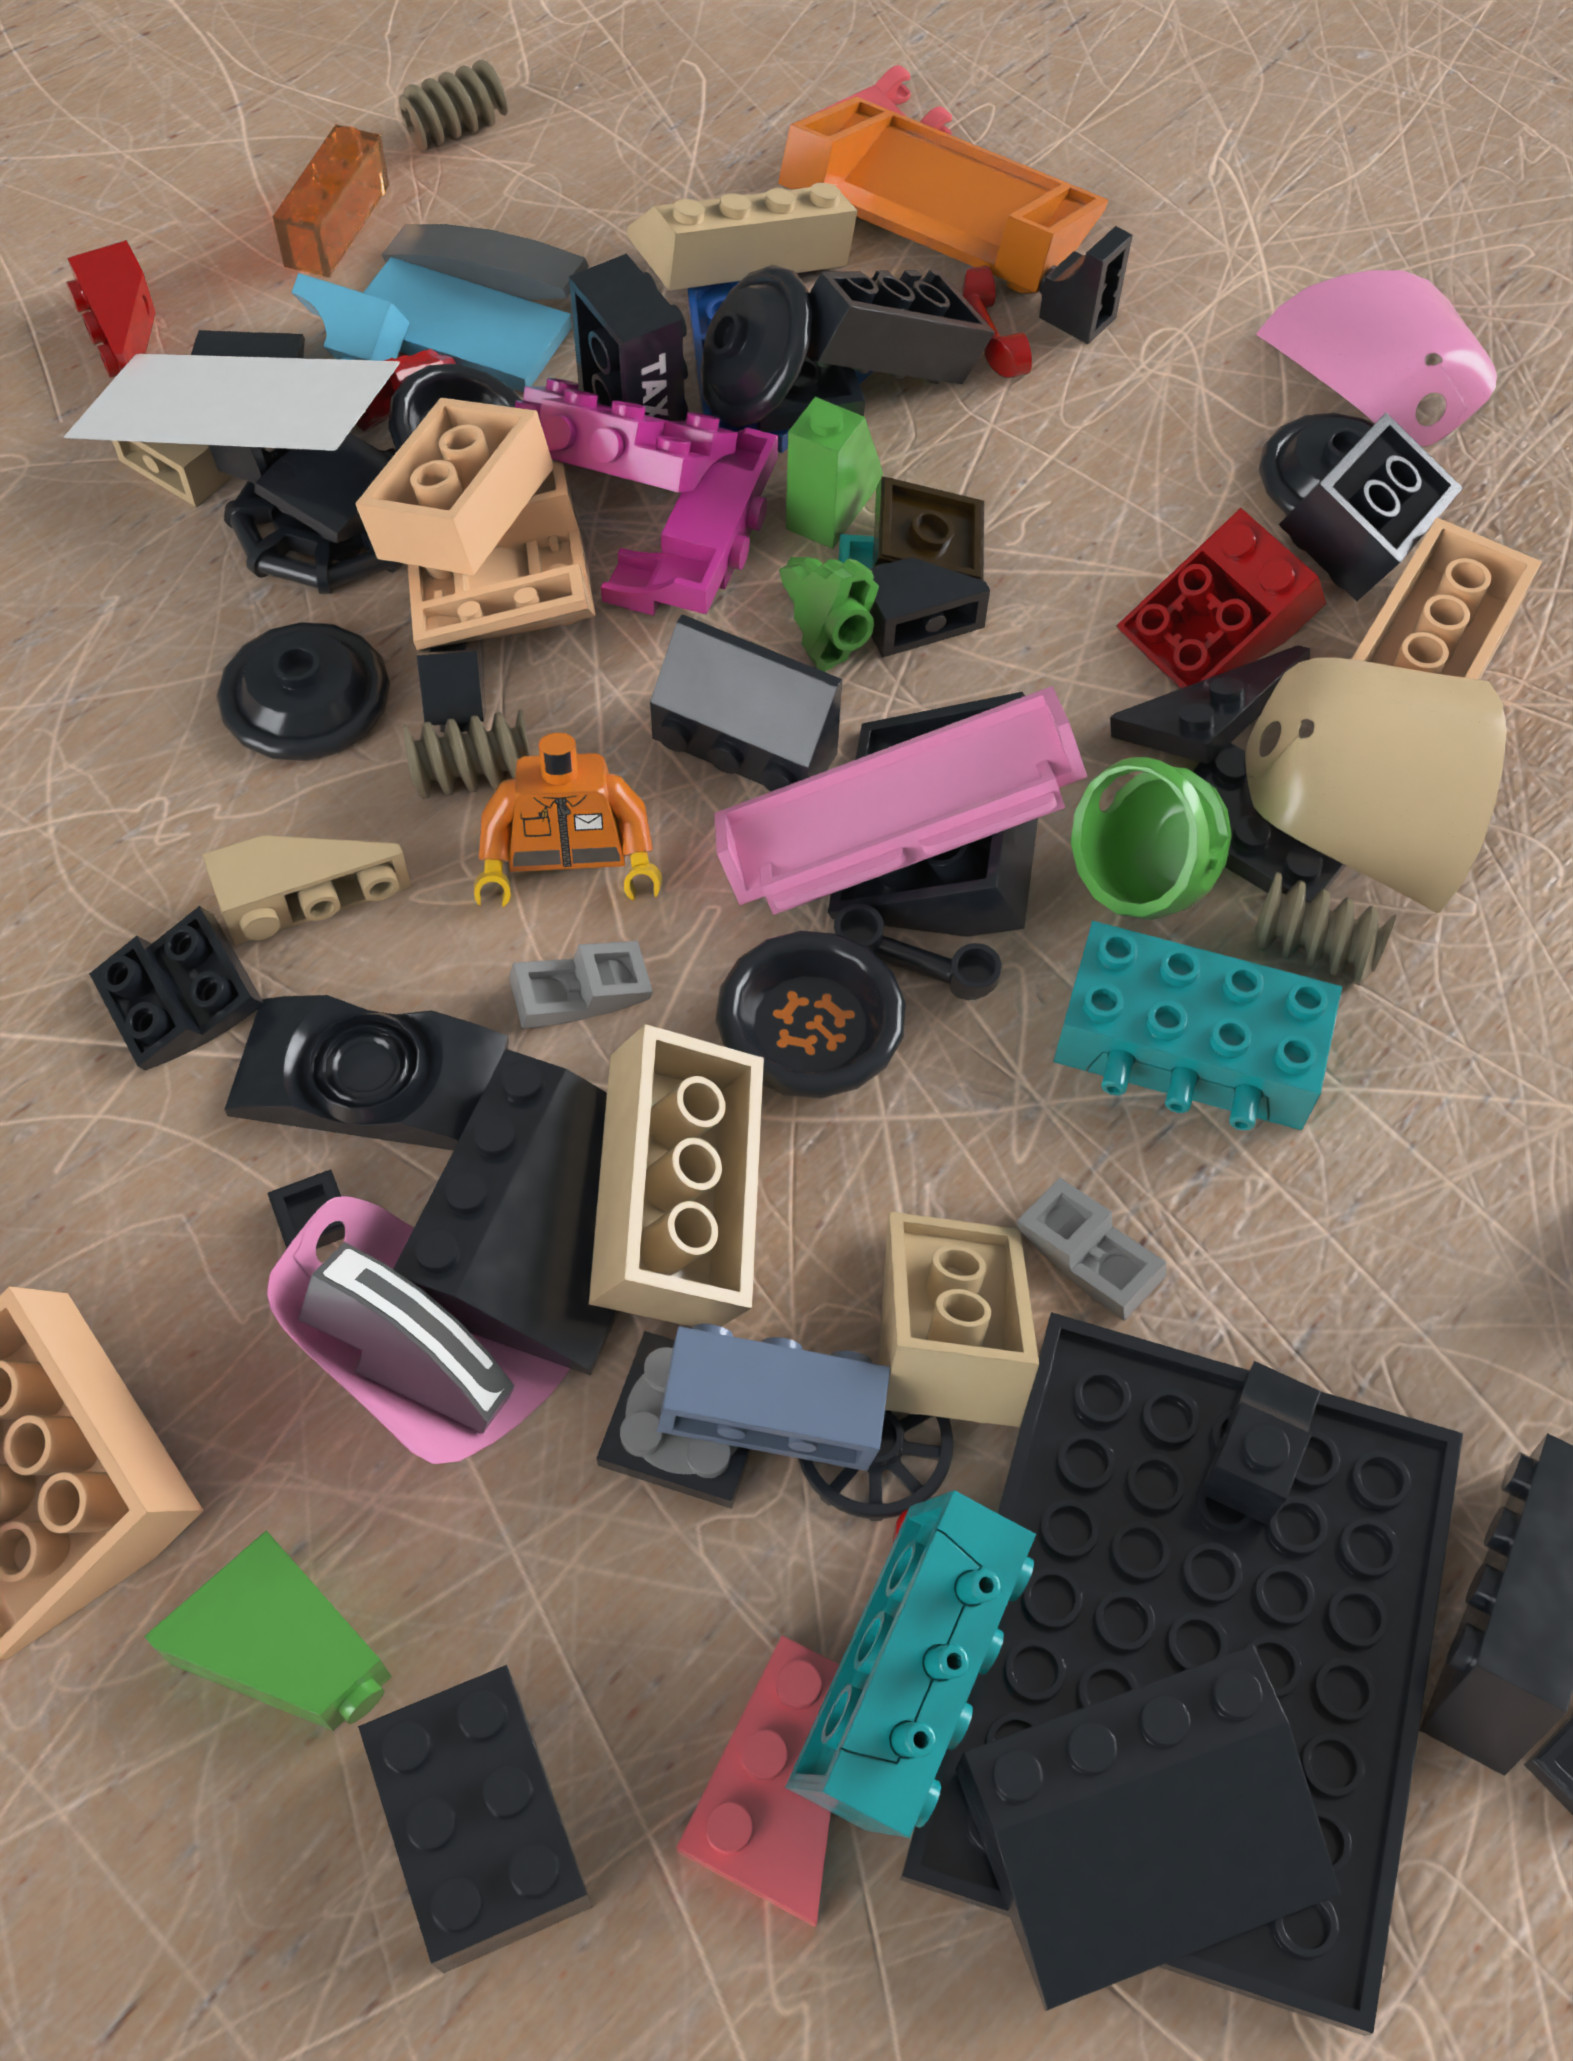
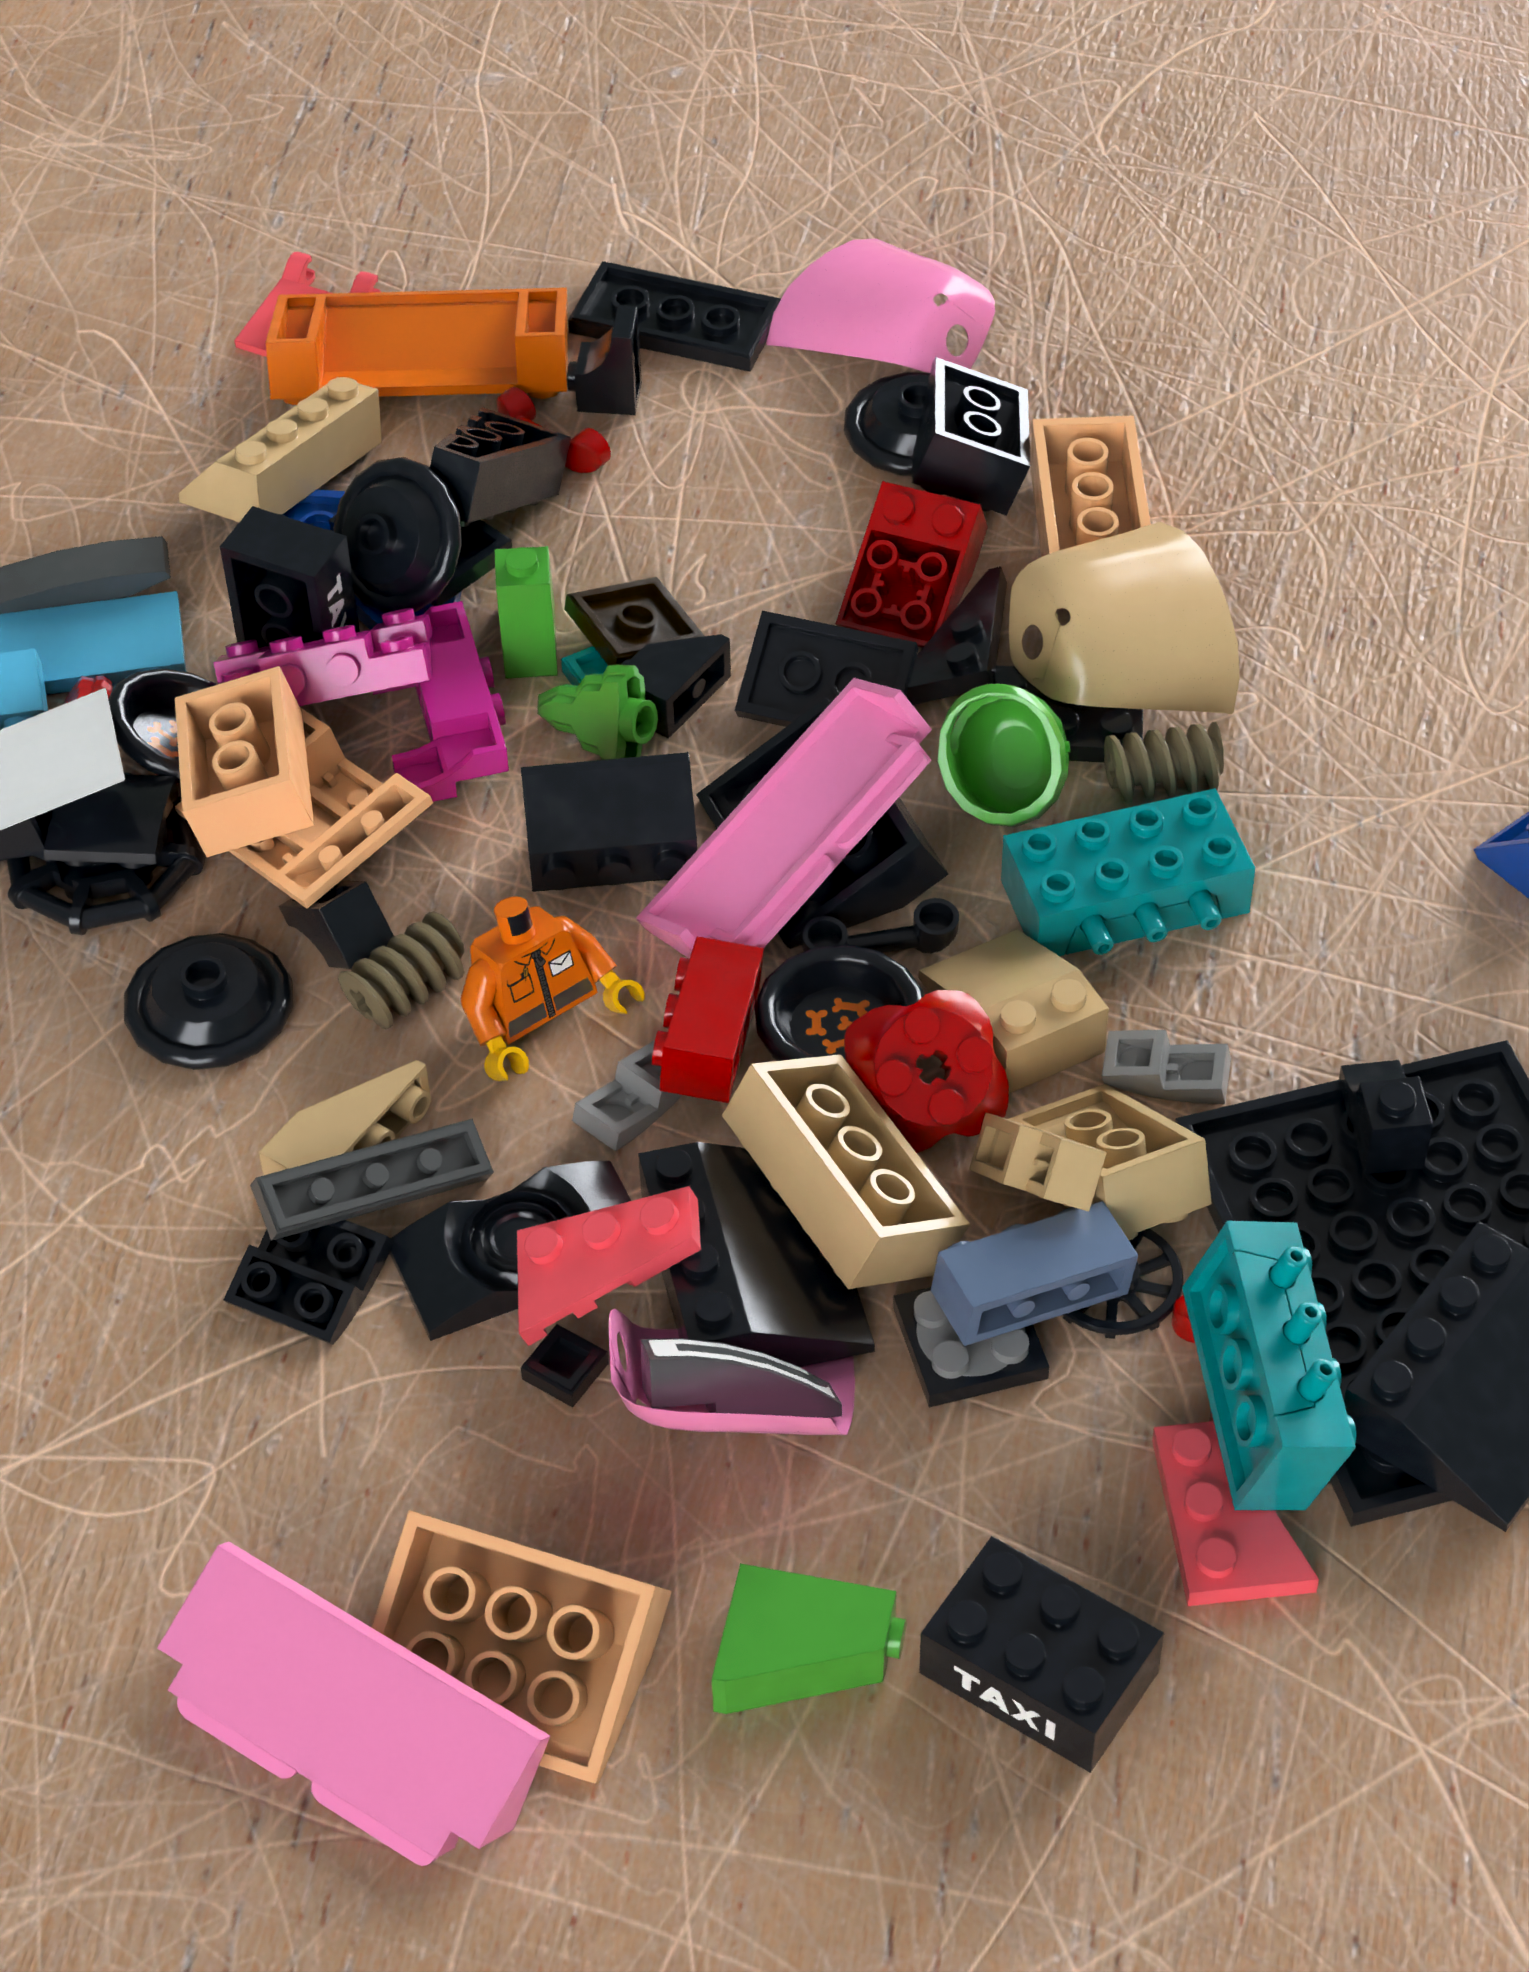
camera: 30 degrees left, 10 degrees down
(274, 934) = (371, 1179): none -> dark grey tile
(389, 1128) = (592, 1253): none -> coral wing
(684, 949) = (708, 1019): none -> red brick
(860, 1287) = (1037, 1162): none -> tan slope
(880, 1091) = (945, 1024): none -> red brick
(990, 1102) = (1036, 1002): none -> tan slope
(1044, 645) = (804, 661): none -> black plate
(1195, 271) = (678, 315): none -> black tile

